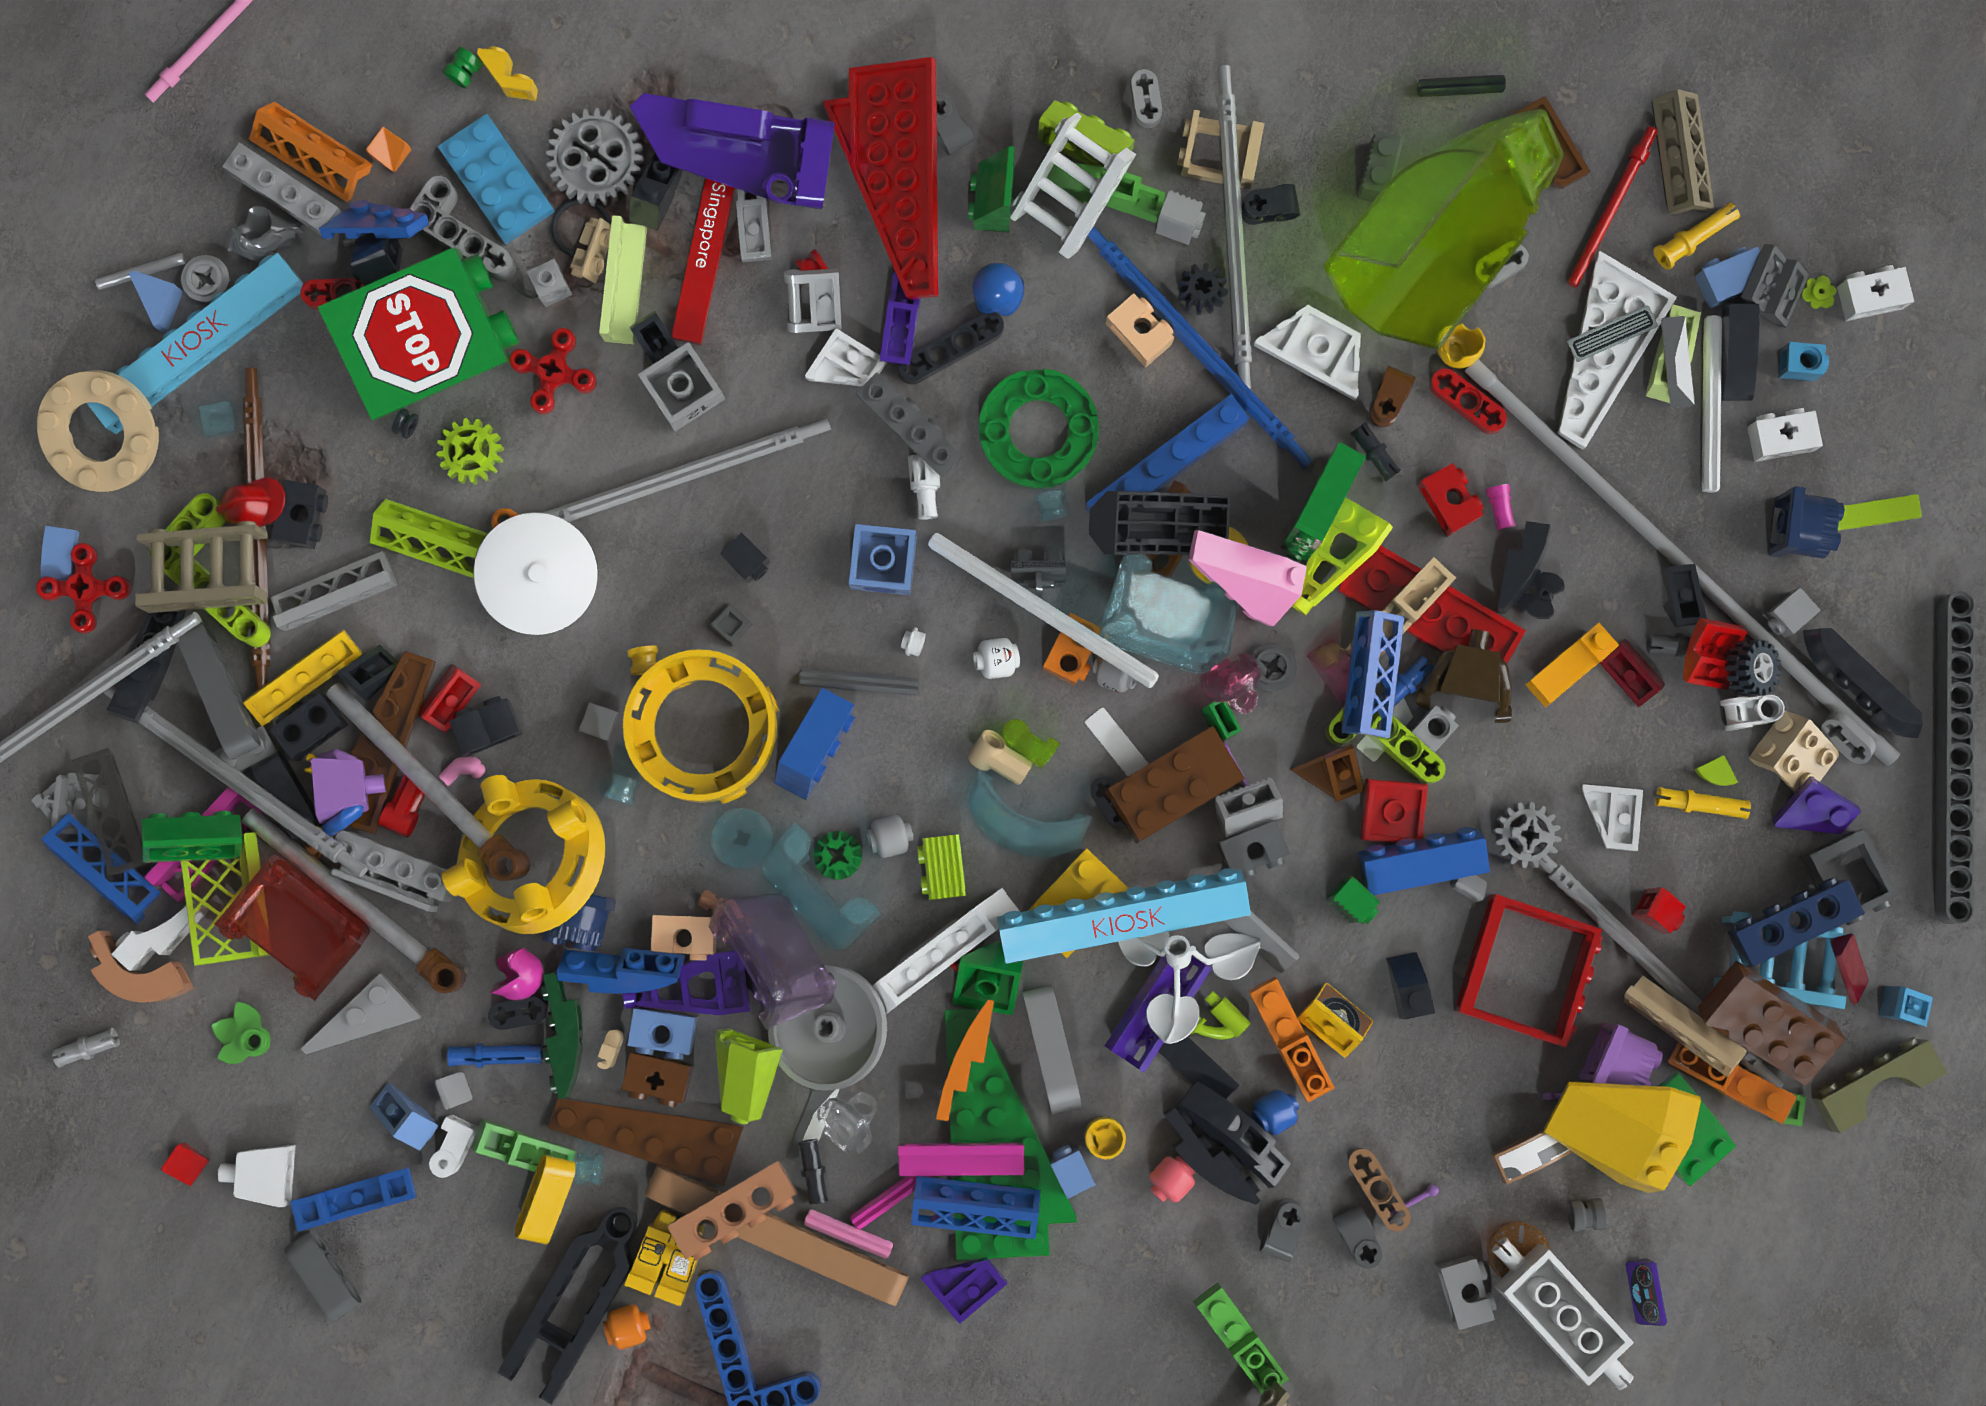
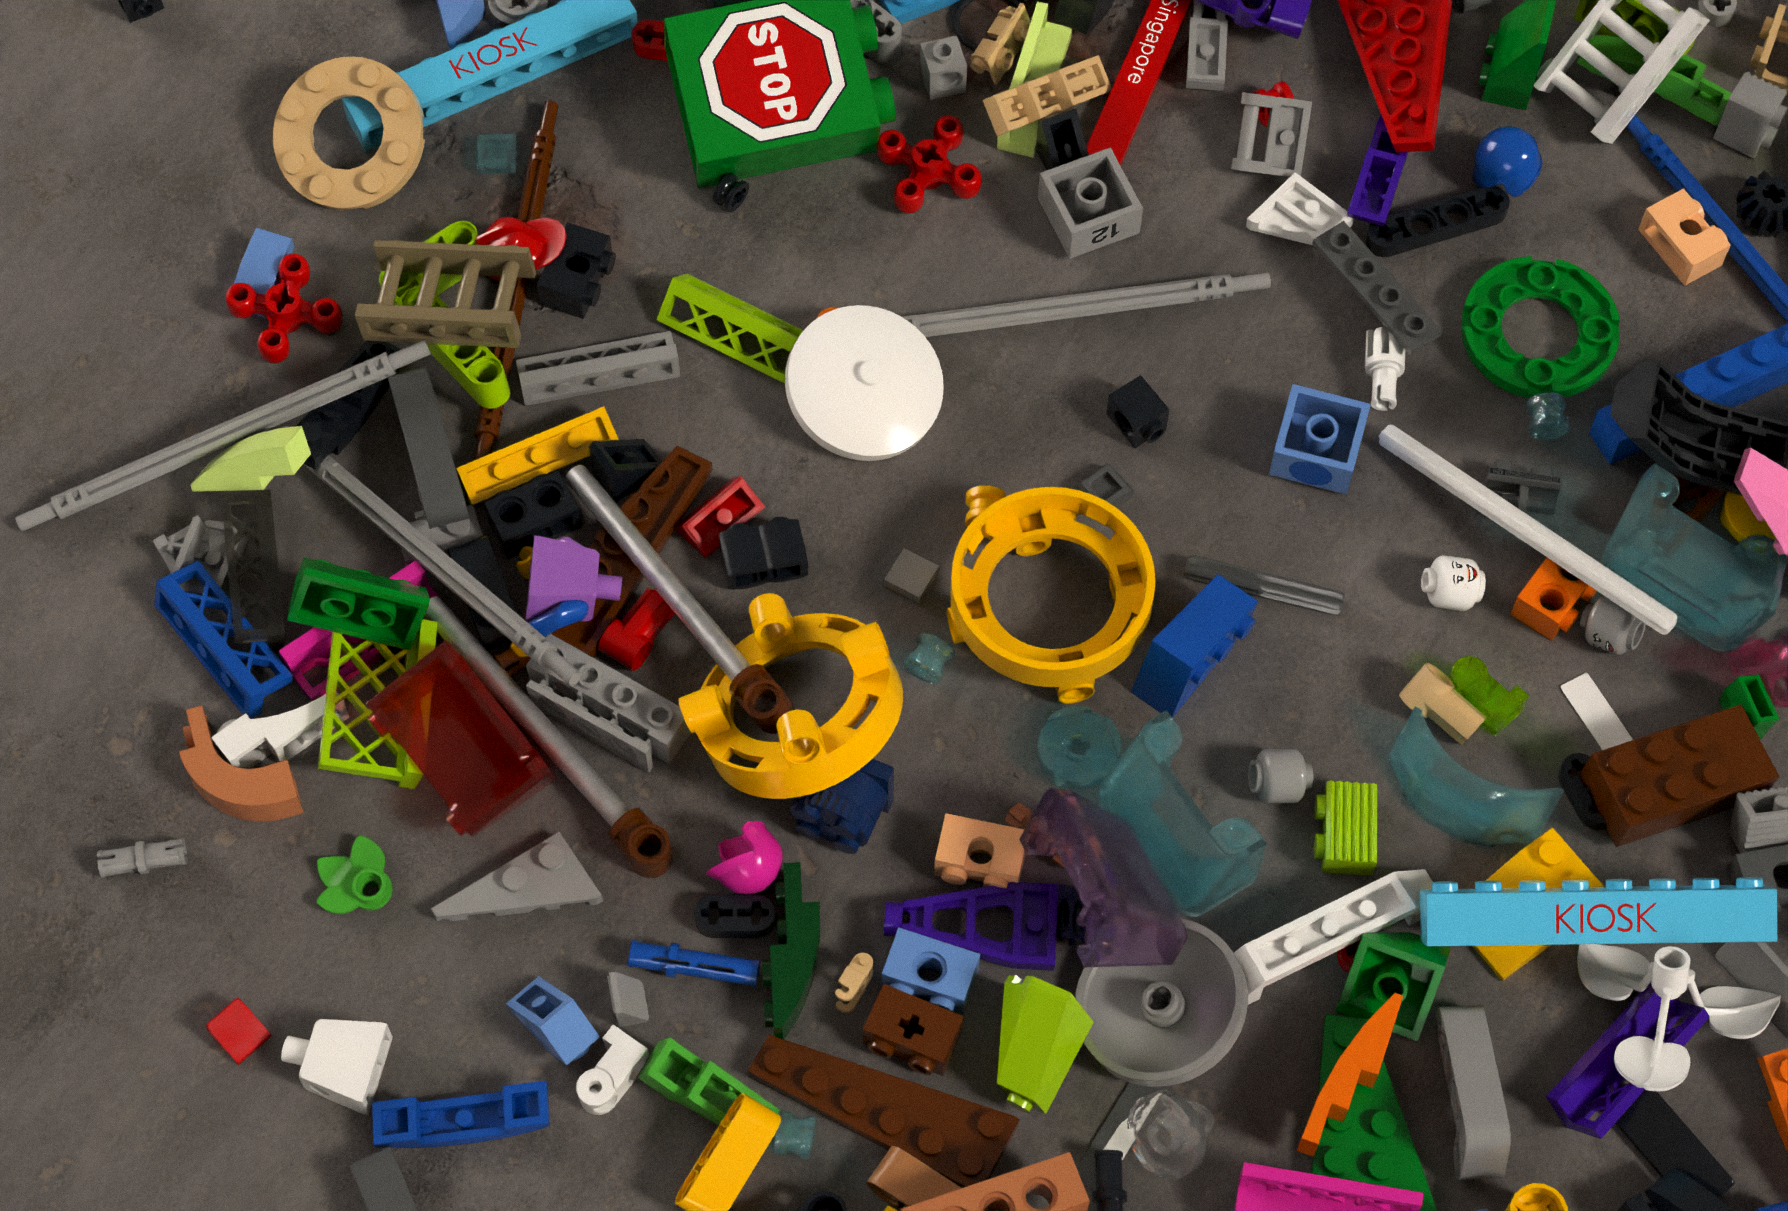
camera: 10 degrees right, 20 degrees down
(90, 729) = (255, 461): none -> yellowish green slope
(460, 766) = (725, 596): bright pink arm -> none
(464, 461) = (806, 235): lime gear -> none
(628, 973) = (902, 882): blue slope -> none
(633, 299) = (1047, 95): none -> tan slope
(852, 852) = (1224, 790): green gear -> none
(913, 642) = (1343, 548): white plate -> none
(1233, 1020) = (1730, 1098): lime plant -> none

